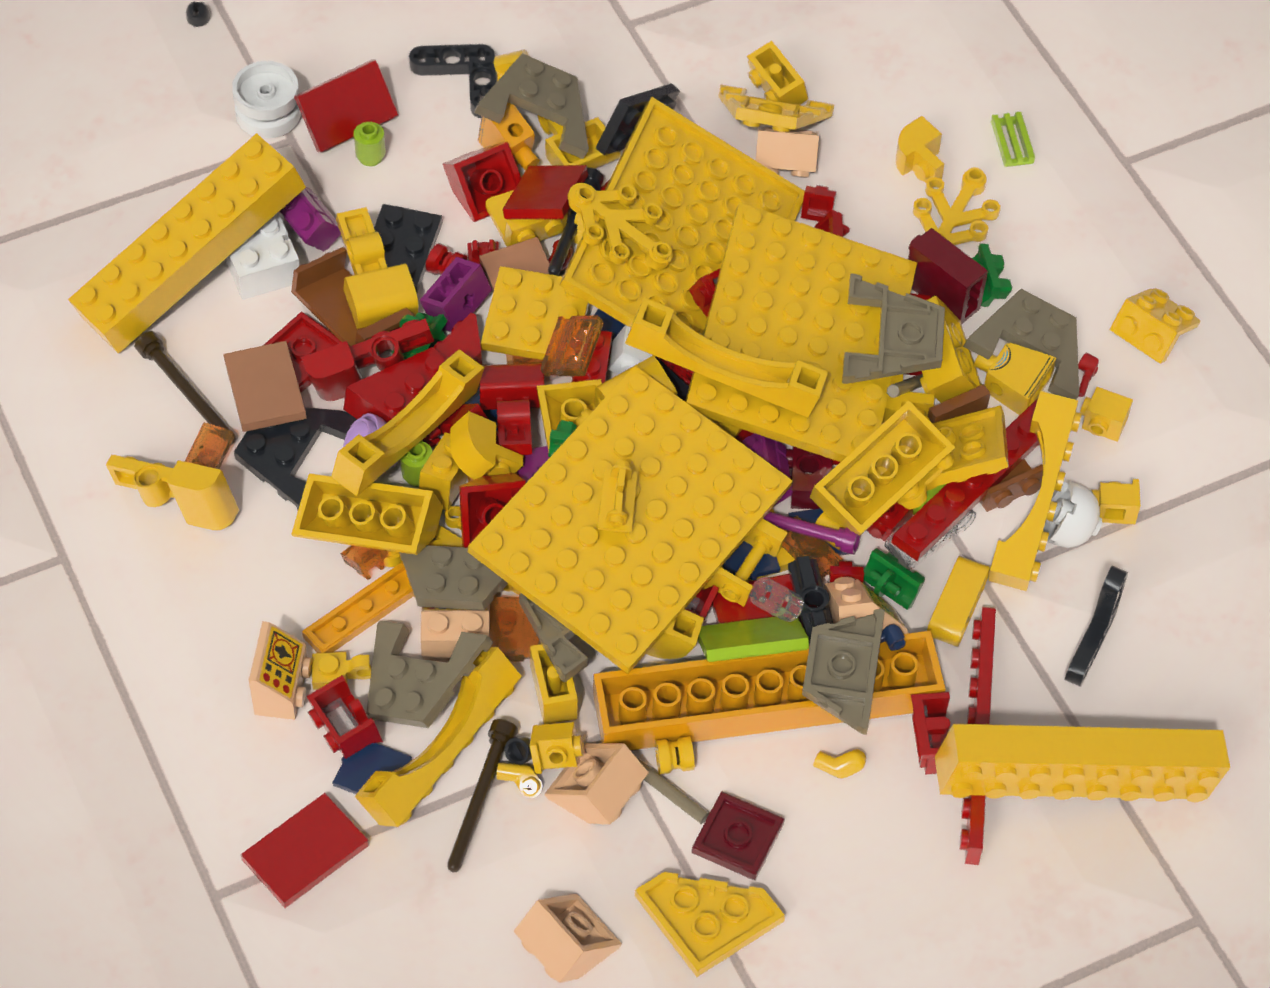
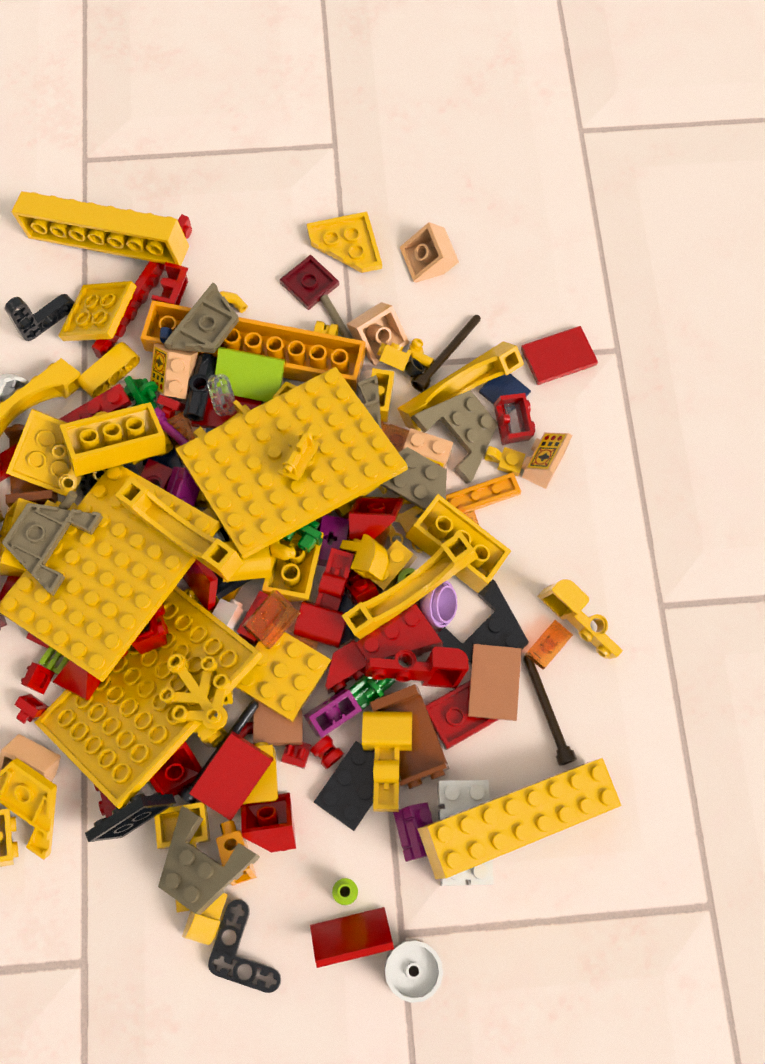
camera: 160 degrees left, 15 degrees up
(1017, 658) = (97, 311): none -> yellow plate

